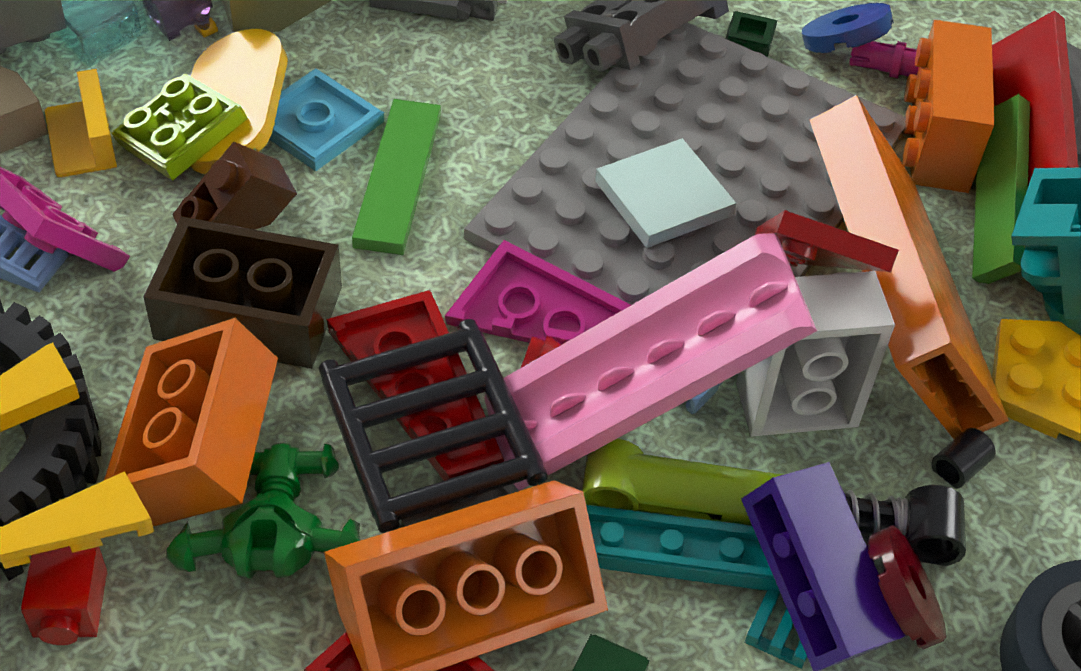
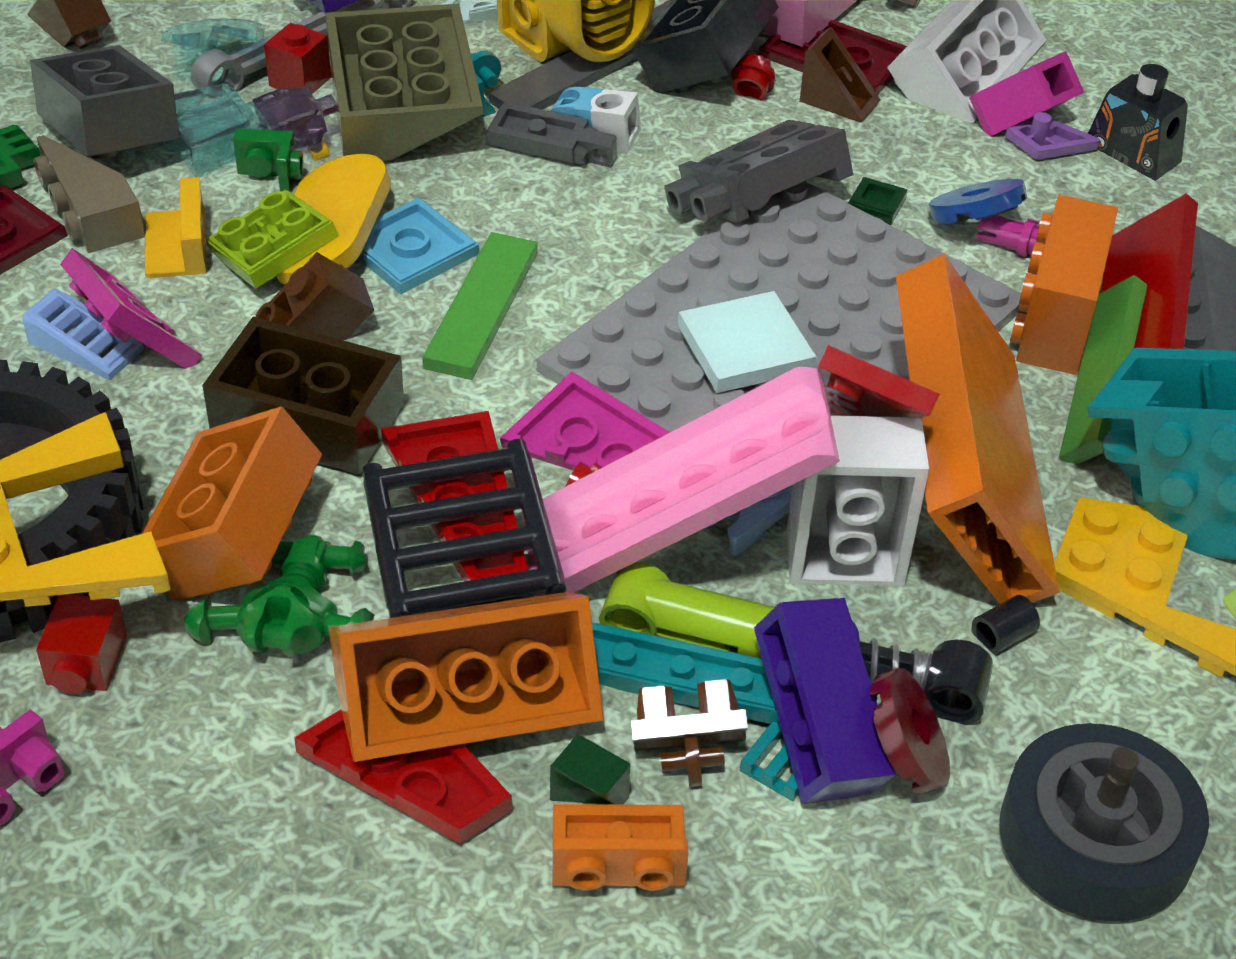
camera: 10 degrees right, 5 degrees down
(159, 36) = (268, 154): none -> green bracket
(719, 595) = (716, 723): none -> hips

